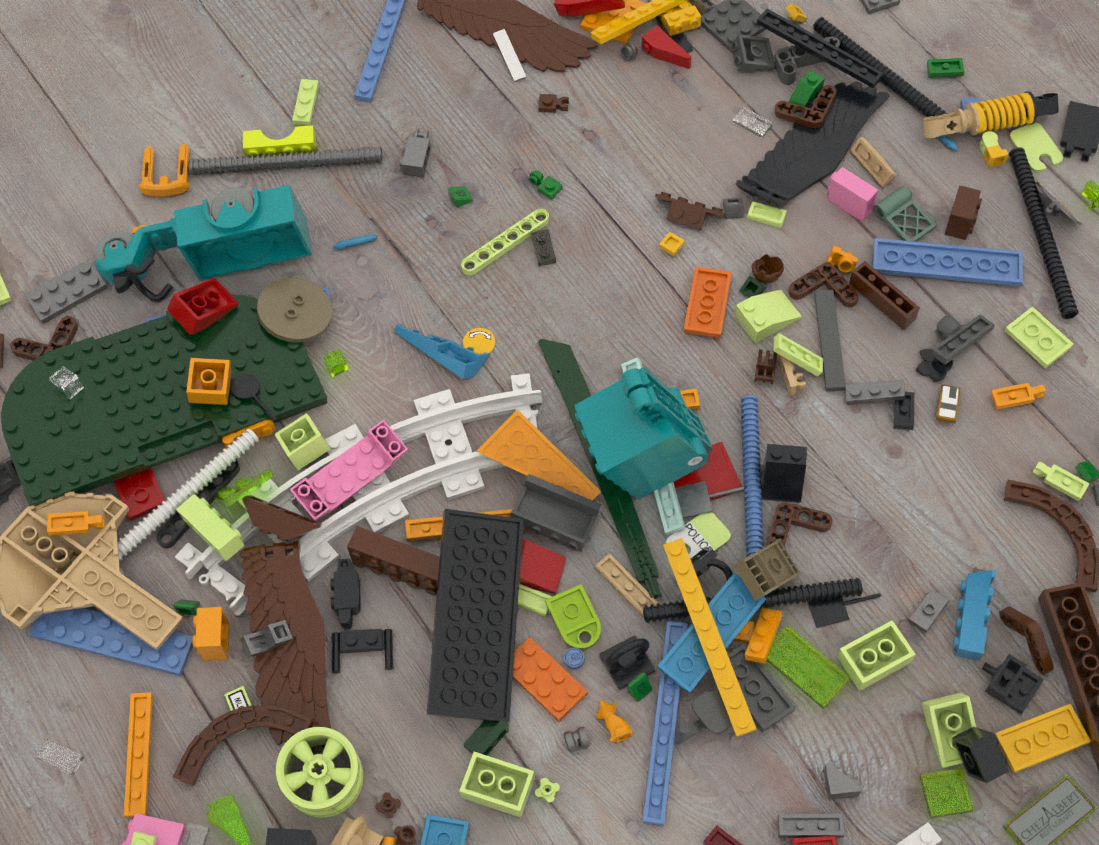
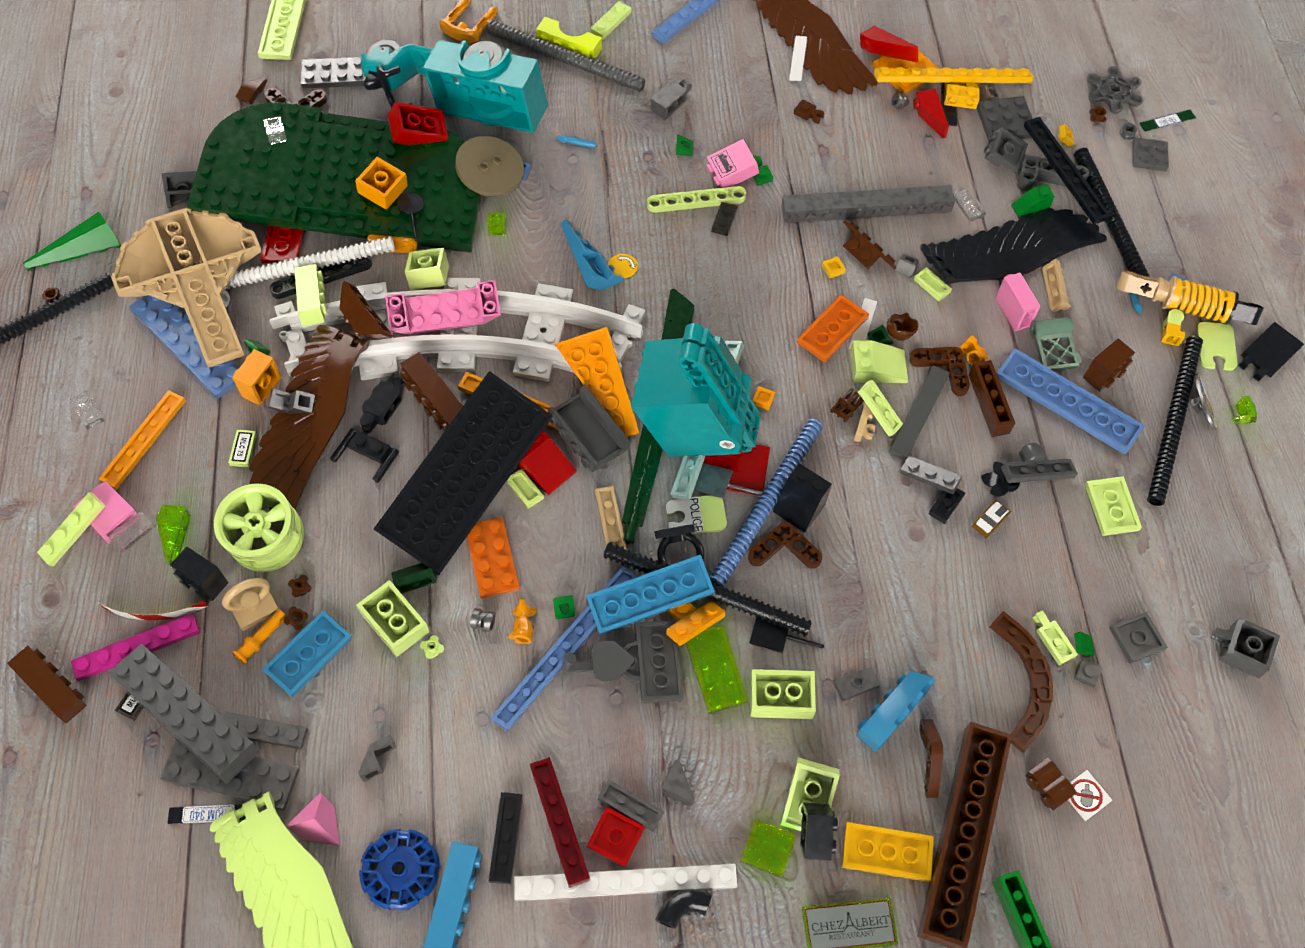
camera: 25 degrees right, 0 degrees up
(73, 523) = (208, 236): light orange plate -> none
(229, 724) = (220, 453): reddish brown plate -> none
(243, 487) = (351, 276): clear neon green plate -> none
(519, 192) = (732, 165): none -> bright pink brick
(574, 616) = (549, 520): lime plate -> none
(574, 658) = (527, 554): medium blue tile -> none
(627, 661) = (567, 579): black tile -> none
(663, 168) = (867, 203): none -> flat silver brick
(709, 638) = (642, 597): yellow plate -> none
(733, 295) = (861, 333): none -> white sticker
(767, 569) = (731, 567): dark tan plate -> none
(812, 113) = (1025, 224): reddish brown beam -> none
(945, 67) = (1173, 240): green plate -> none
(1012, 683) = (891, 788): black plate -> none
(1016, 395) = (1059, 544): light orange plate -> none

